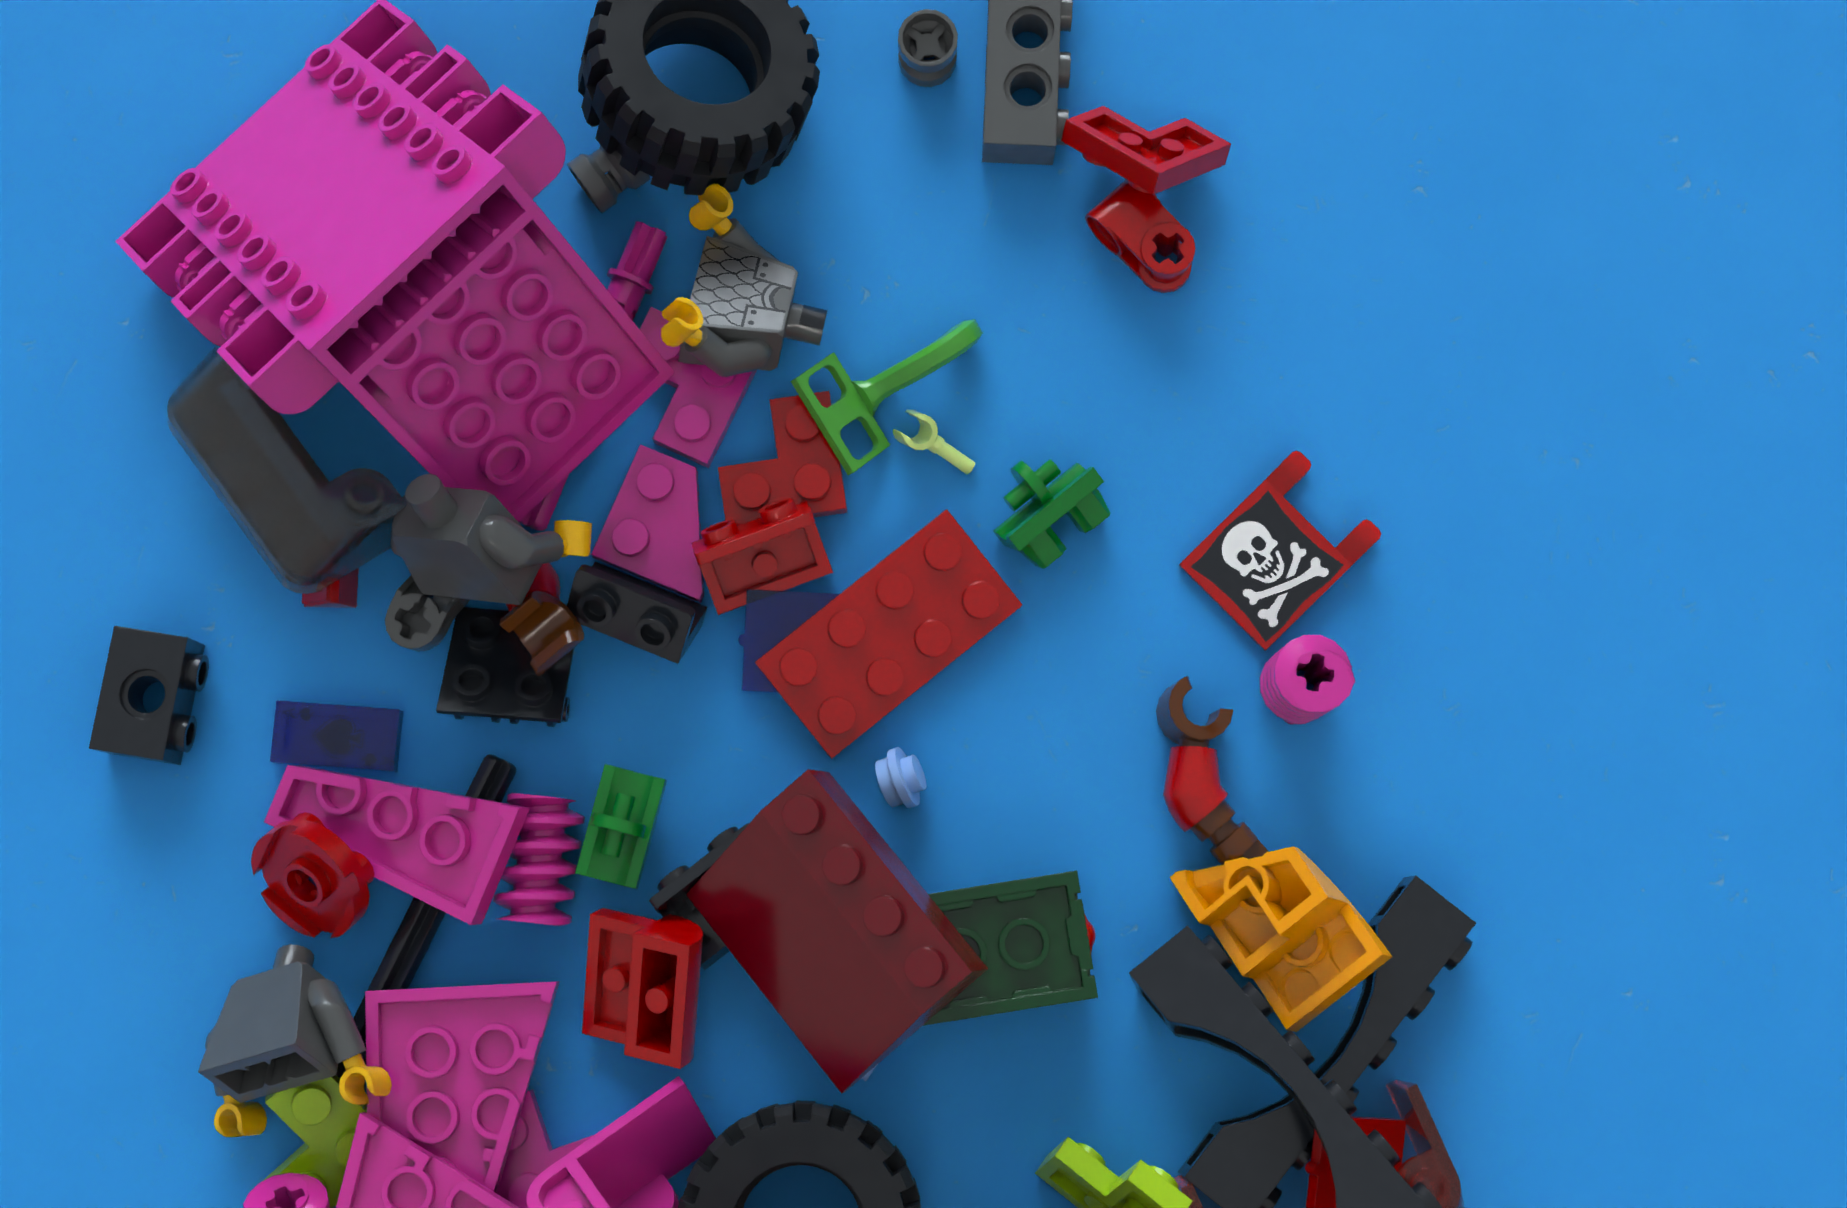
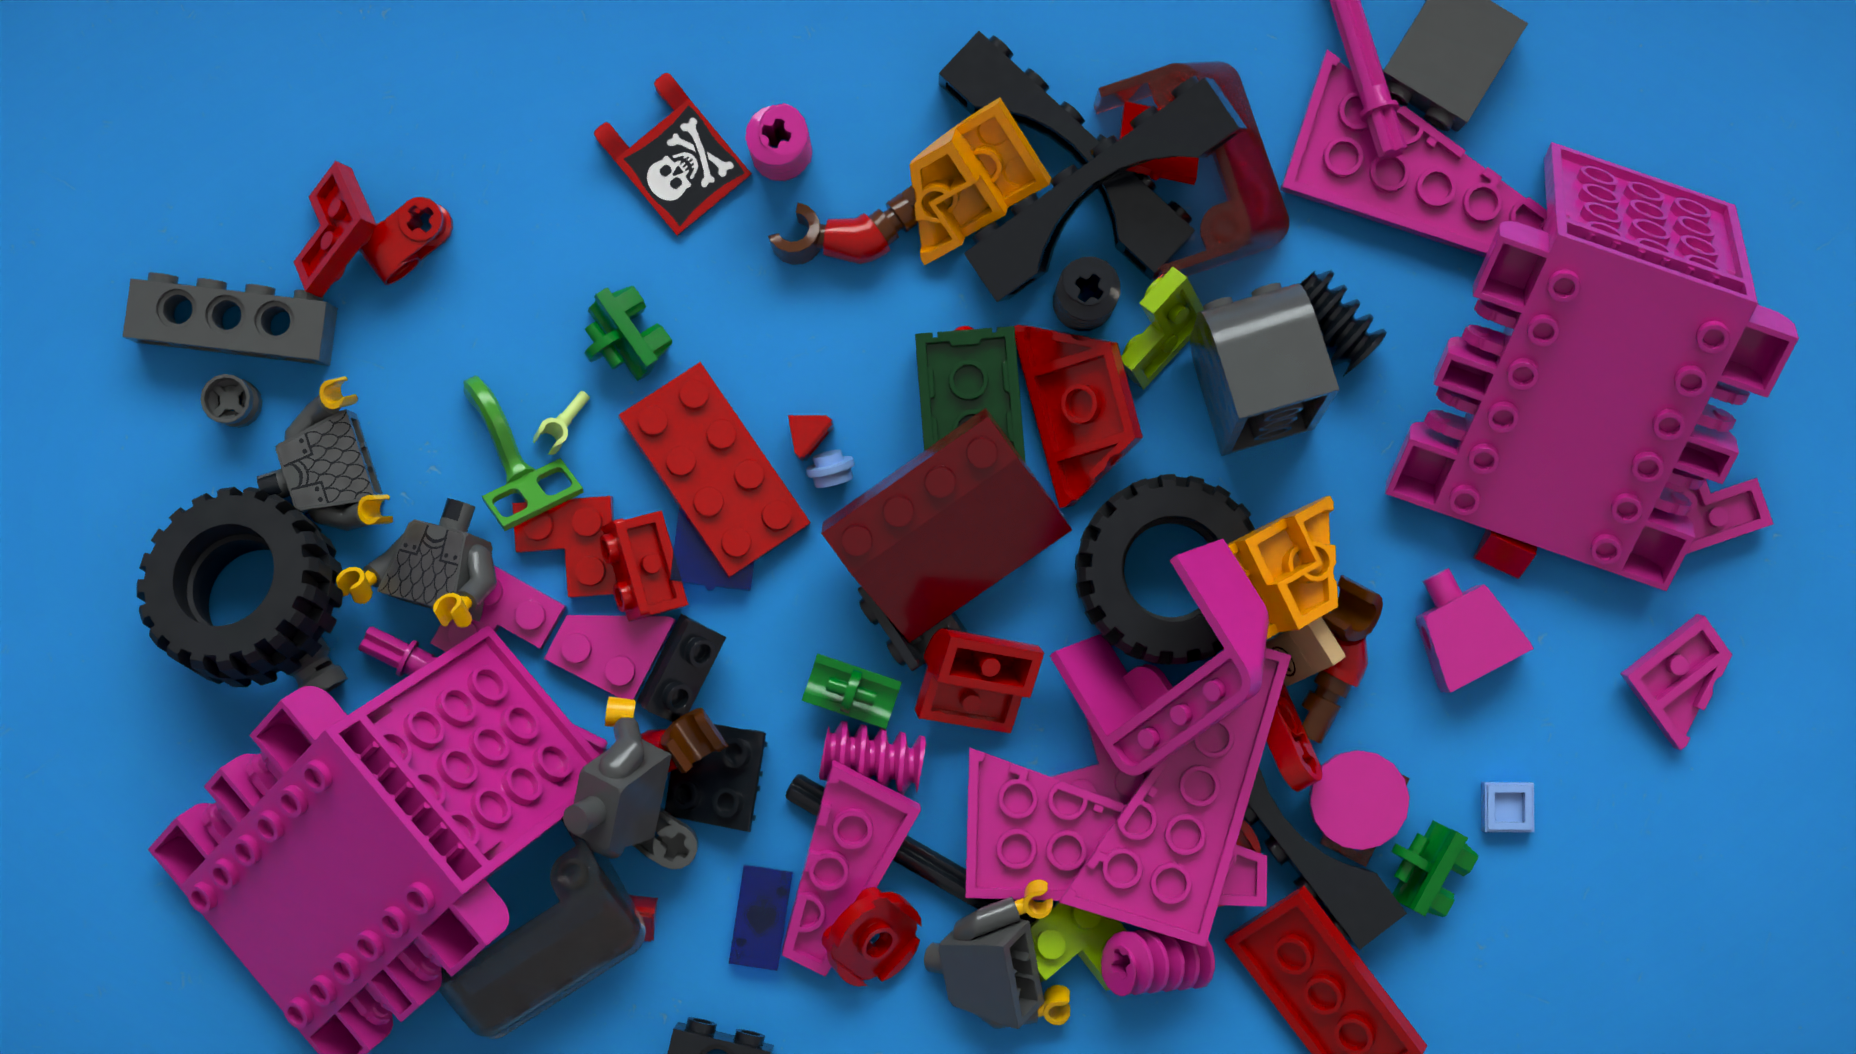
camera: 85 degrees left, 5 degrees up
(857, 167) = (328, 464): none -> torso
(942, 746) = (808, 433): none -> red slope
(1005, 1089) = (1078, 405): none -> red wing
(1168, 1074) = (1074, 279): none -> black piece

